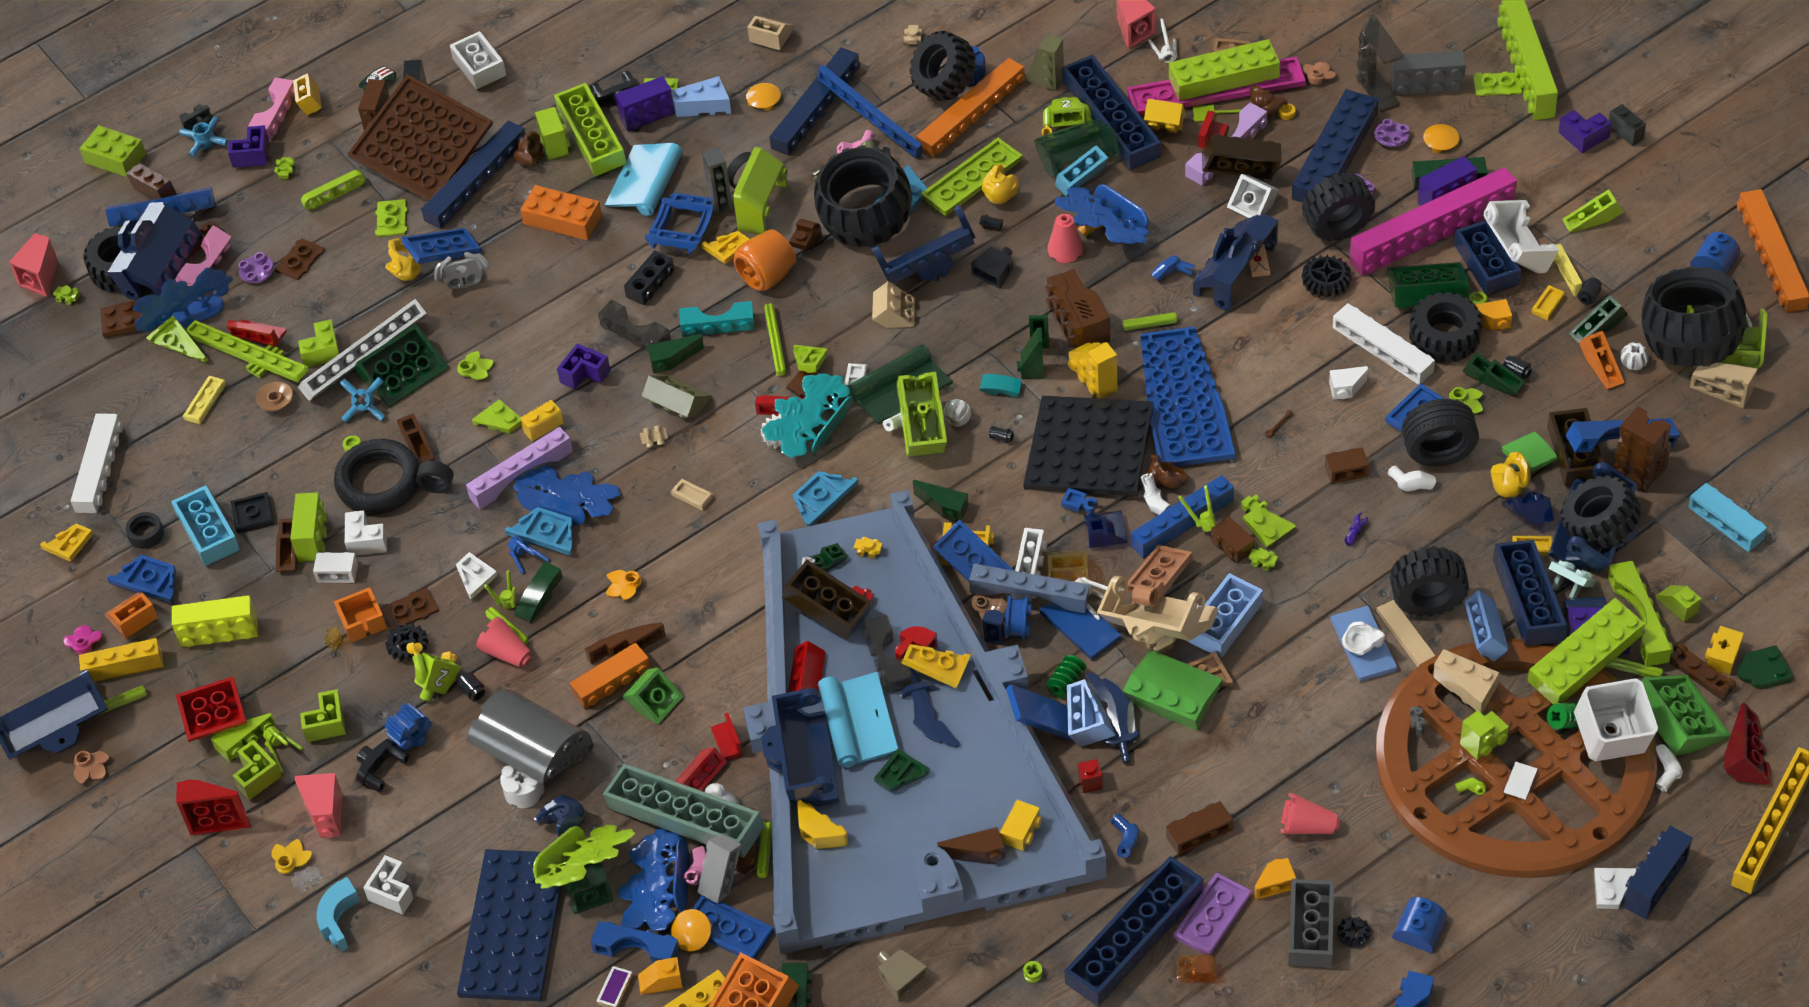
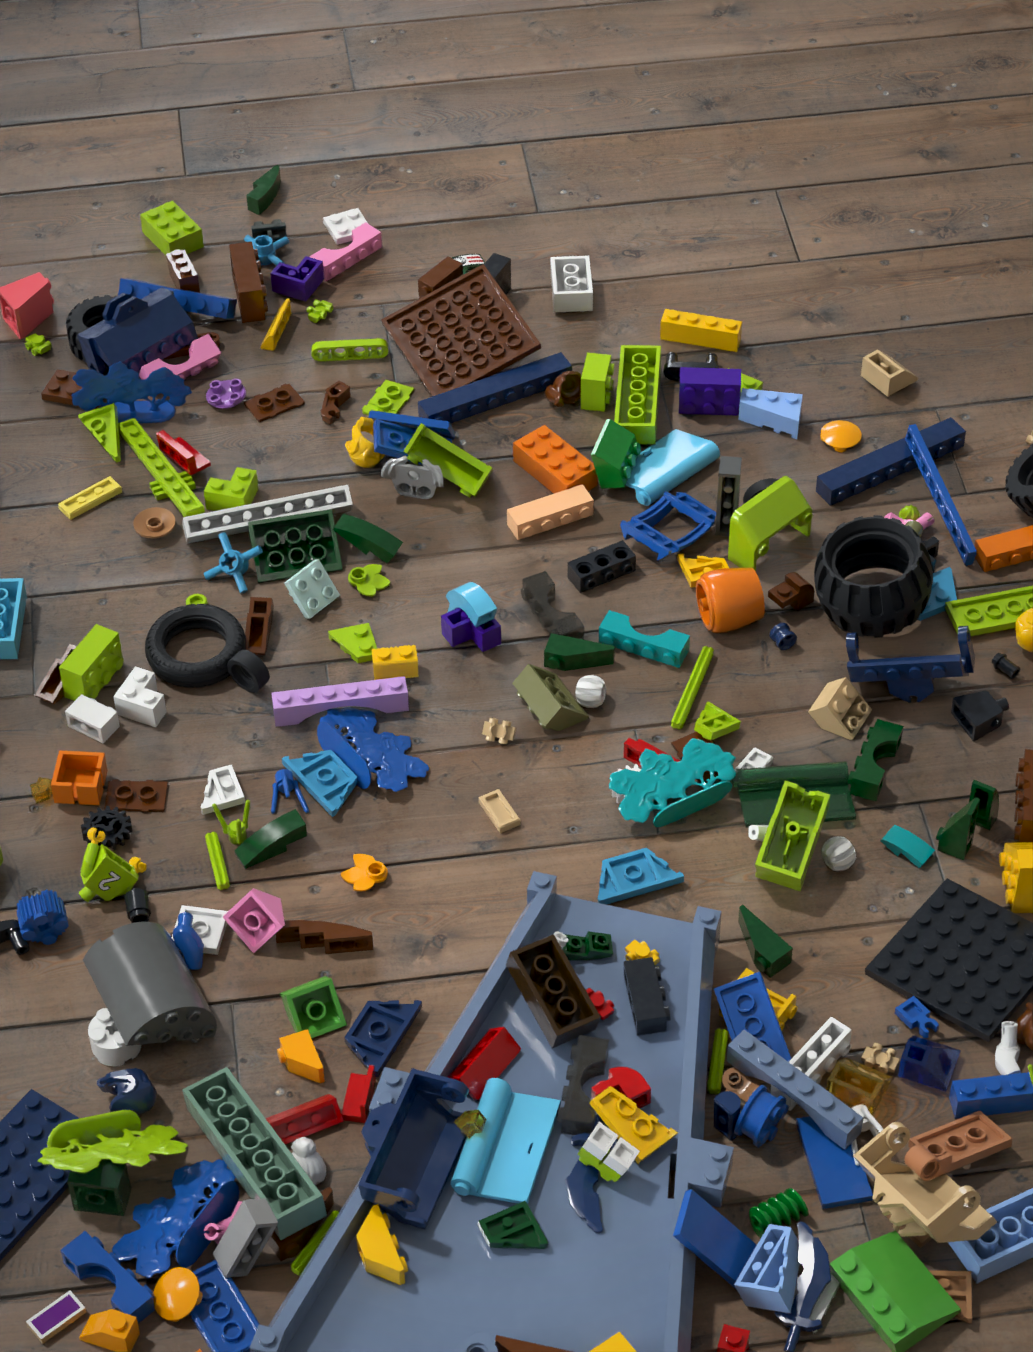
camera: 25 degrees right, 5 degrees down
(166, 85) = (264, 191): none -> dark green slope
(211, 168) = (248, 282): none -> reddish brown brick
(252, 512) = (55, 627): black tile -> none
(254, 86) = (342, 224): none -> white plate
(257, 195) = (277, 326): none -> yellow slope
(307, 94) = (385, 250): yellow brick -> none
(347, 234) = (334, 397): none -> reddish brown piece
(439, 393) = (312, 589): none -> light aqua plate
(441, 225) = (440, 427): none -> blue tile
(455, 333) = (368, 537): none -> dark green slope
(494, 247) = (453, 461): none -> lime windscreen
(503, 643) = (197, 874): coral cone -> none
(529, 690) = (188, 941): none -> blue arm
(530, 680) = (208, 925): none -> white plate
(571, 652) = (256, 918): none -> bright pink slope
(577, 346) = (473, 602): none -> medium azure arch
(582, 252) = (550, 512): none -> light nougat brick
(604, 56) = (701, 330): none -> yellow brick
(606, 186) = (615, 455): none -> green slope
(610, 676) = (283, 964): orange brick -> none
(668, 732) = (301, 1056): none -> light orange slope
(703, 376) = (590, 691): none -> white piece
(711, 688) = (380, 1031): none -> dark blue wing
(818, 271) = (783, 636): none -> dark blue wheel
(828, 715) = (471, 1122): none -> clear yellow piece
(853, 136) = (909, 512): none -> lime plate
(890, 573) = (646, 996): none -> black brick
(936, 689) = (611, 1162): none -> white hips
(945, 347) = (882, 742): none -> dark green arch
(958, 587) = (717, 1061): none -> lime axle
(1001, 434) = (879, 903): black pin -> none
(1074, 542) = (881, 1061): none -> tan piece

